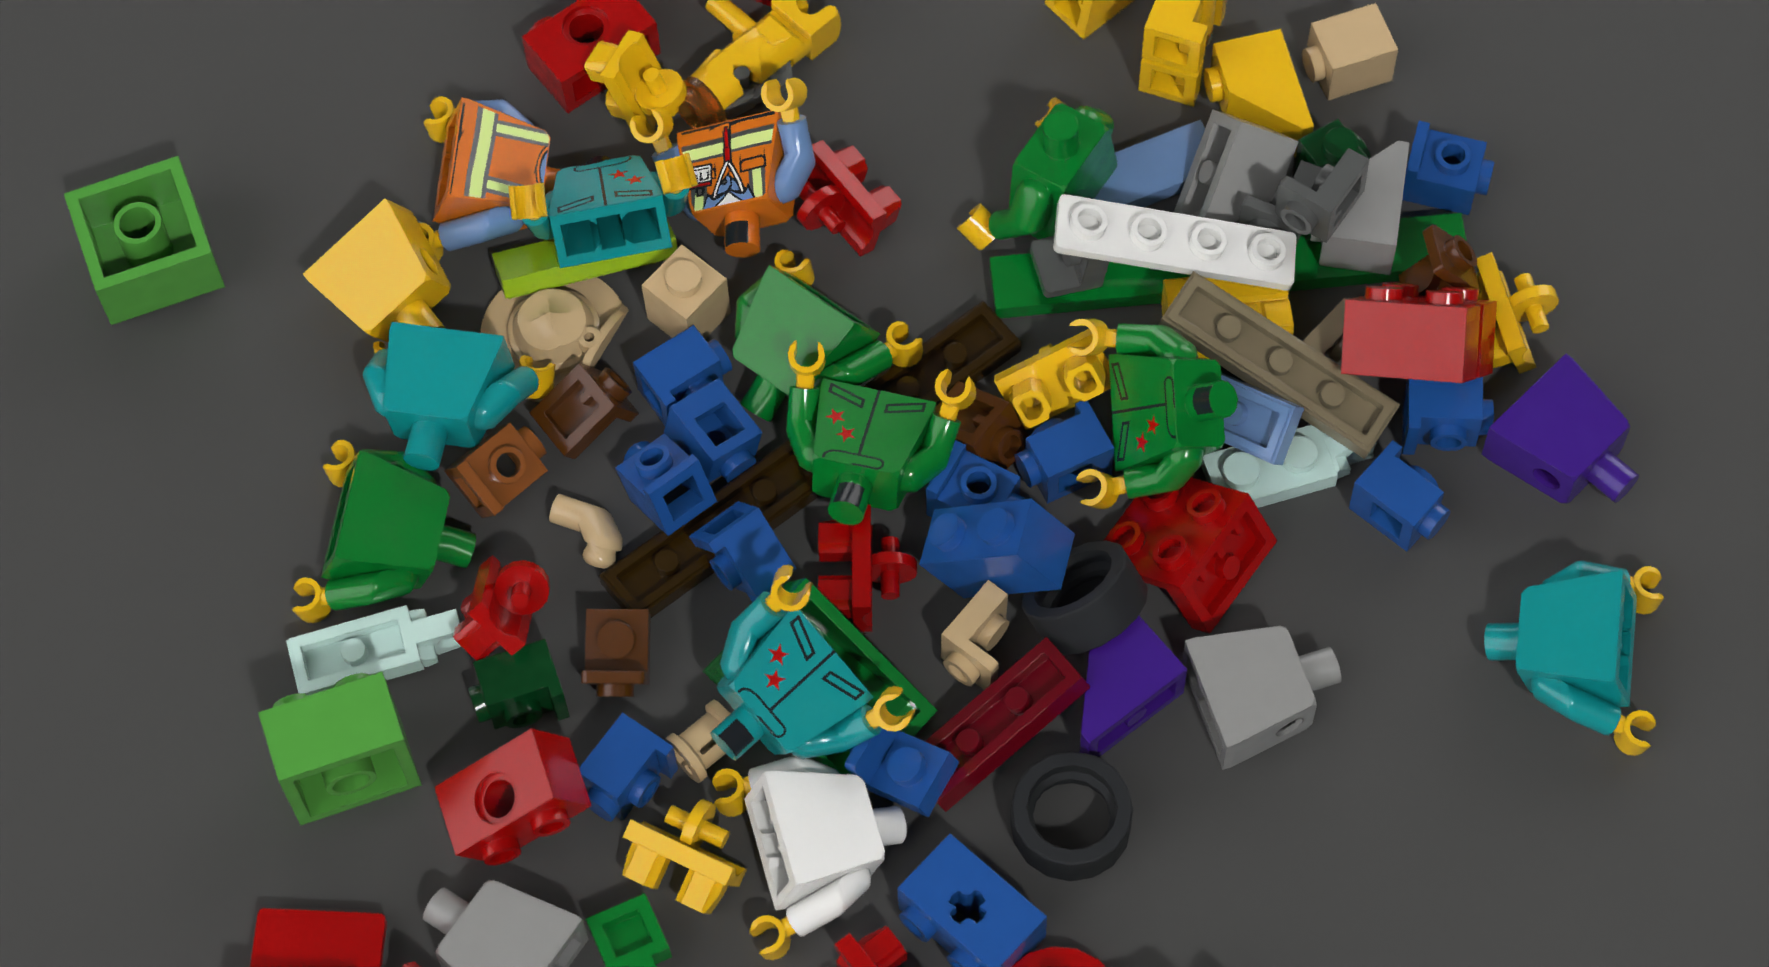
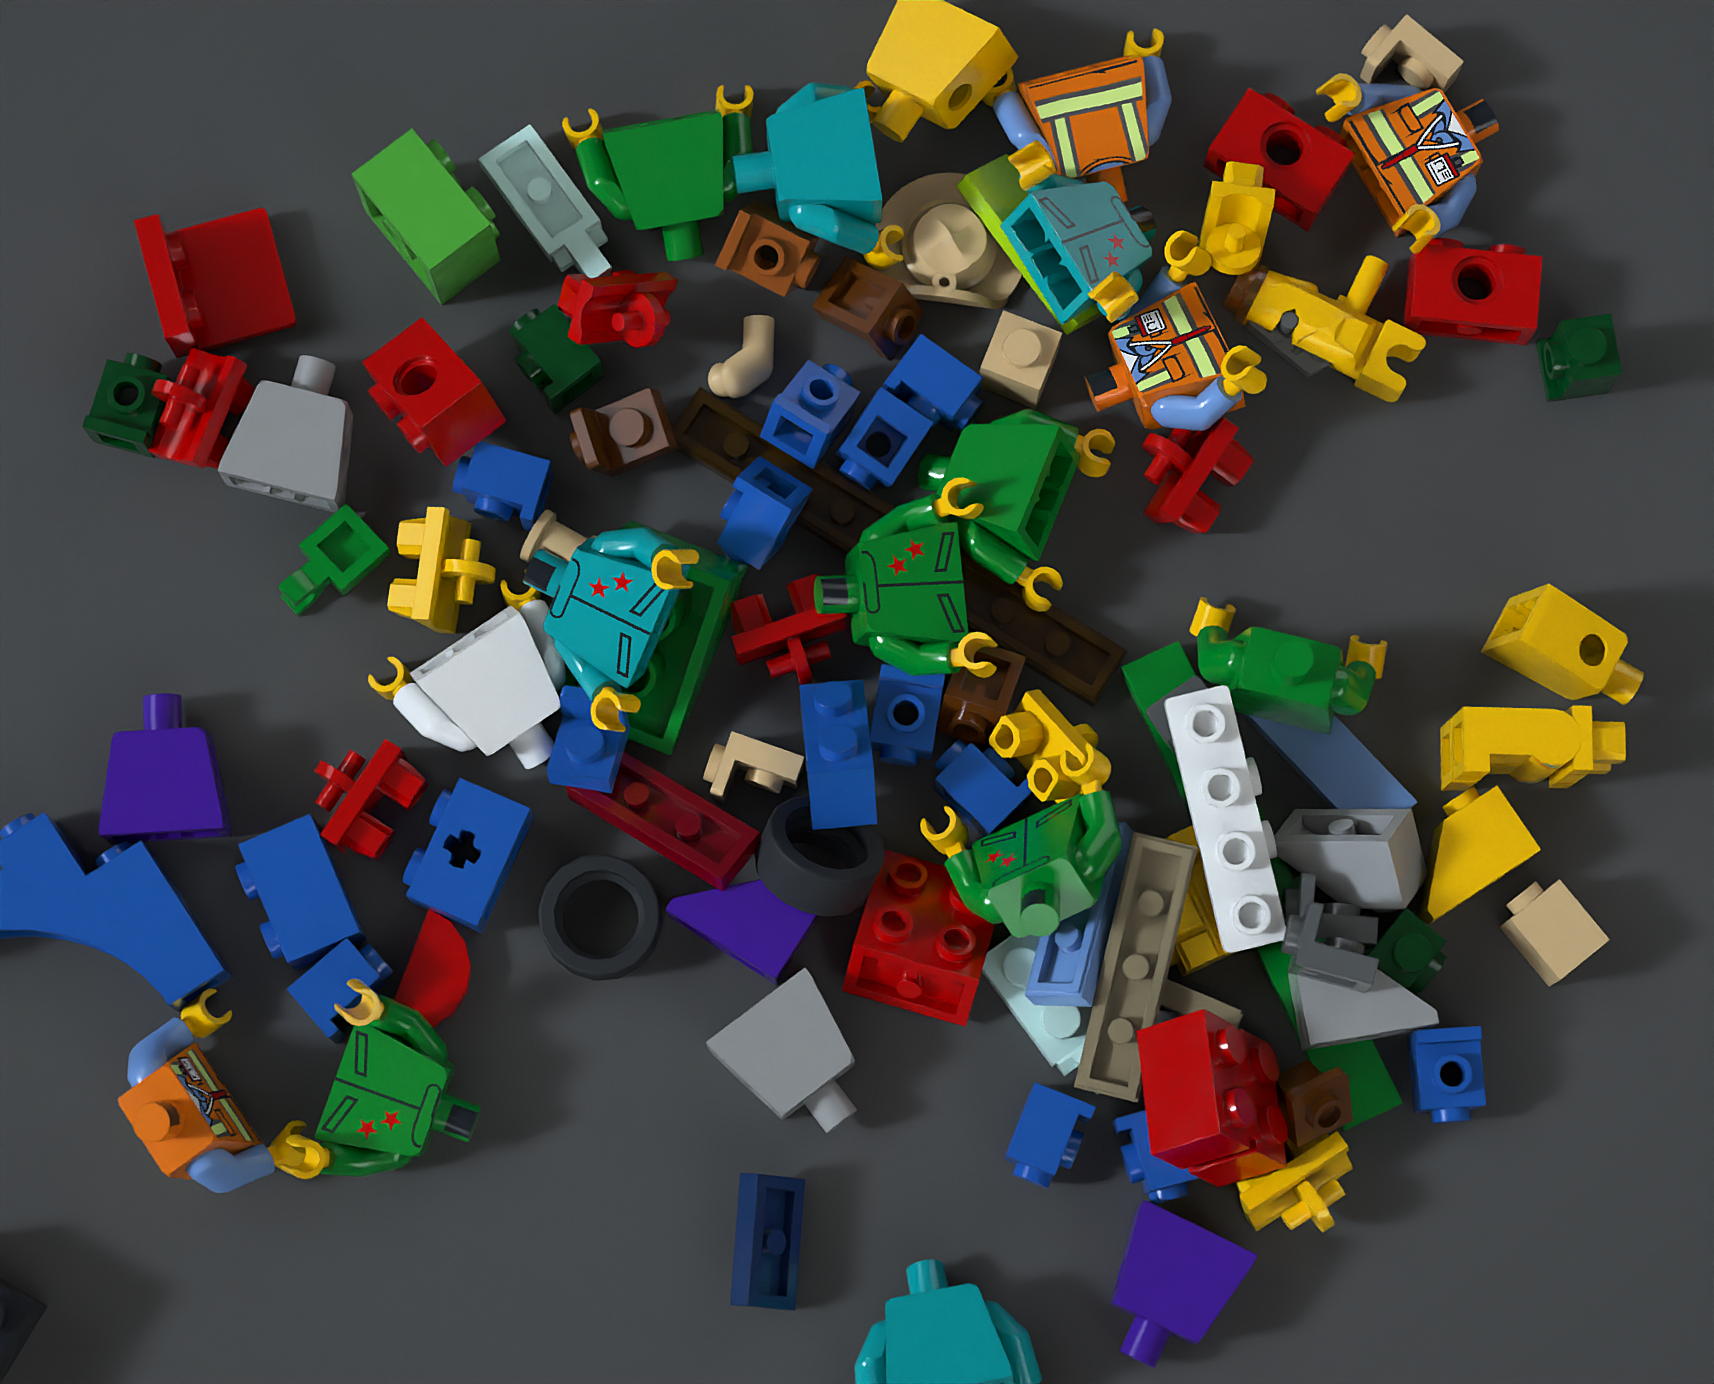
camera: 65 degrees right, 15 degrees up
(1408, 757) = (767, 1242): none -> dark blue plate

